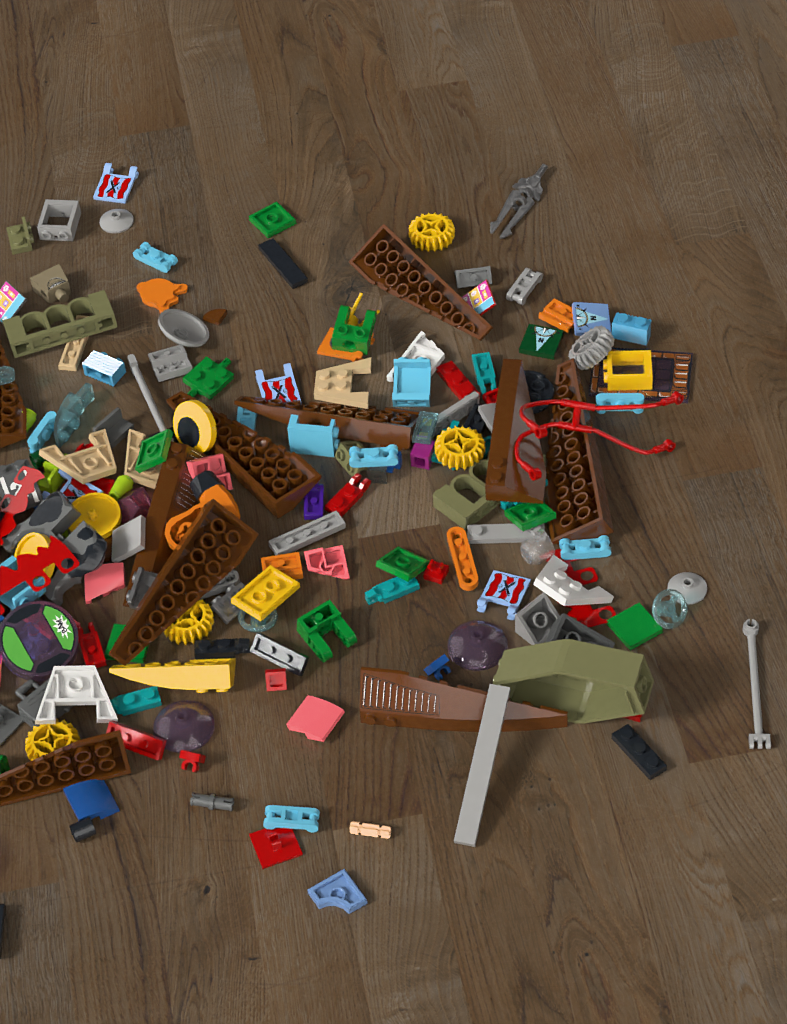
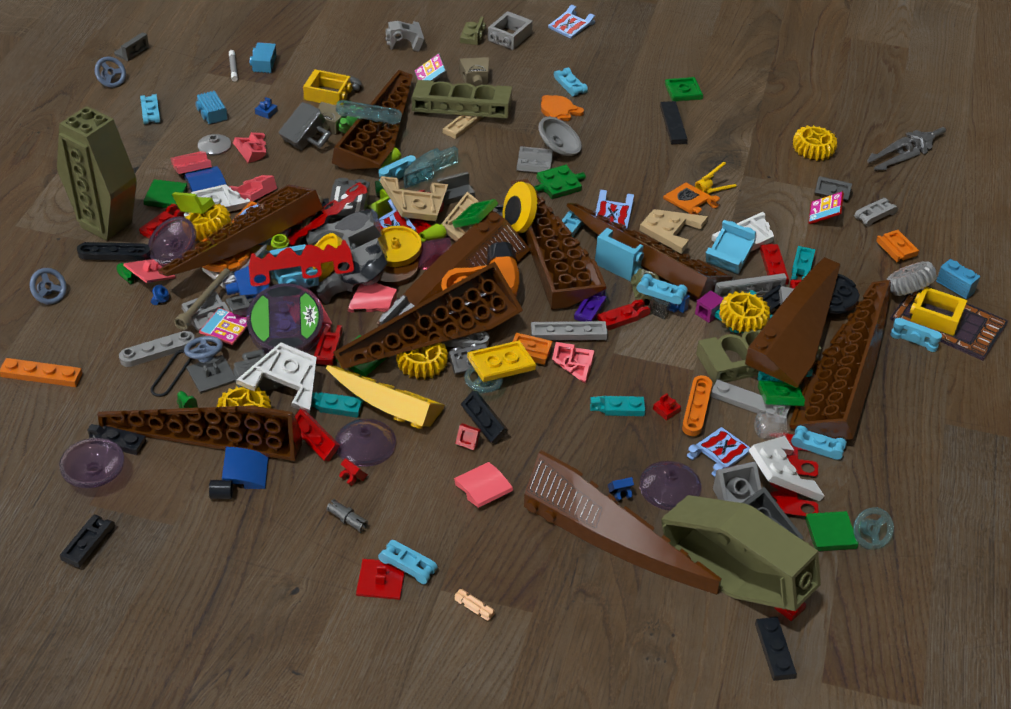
camera: 20 degrees right, 5 degrees down
(104, 368) = (478, 143): brick -> none
(116, 221) = (556, 47): light grey dish -> none
(128, 539) = (411, 272): light grey tile -> none
(147, 395) = (499, 174): light grey hinge -> none
(213, 463) = (520, 245): coral slope -> none
(215, 316) = (593, 140): reddish brown tile -> none
(221, 648) = (436, 391): black hinge -> none
(320, 622) = (534, 405): green brick -> none
(338, 891) = (411, 648): medium blue tile -> none
(351, 337) = (699, 194): green brick -> none
(401, 272) = (774, 167): reddish brown wedge -> none
(402, 563) = (638, 387): green tile -> none
(425, 427) = (721, 284): clear light blue tile -> none
(482, 765) = (609, 591): light grey tile -> none
(541, 341) = (868, 260): dark green tile -> none
(541, 431) = (819, 318): red bar -> none
(588, 316) = (923, 251): medium blue tile -> none
(694, 591) = (906, 518): light grey dish -> none
(758, 737) = (907, 688): light grey hinge -> none

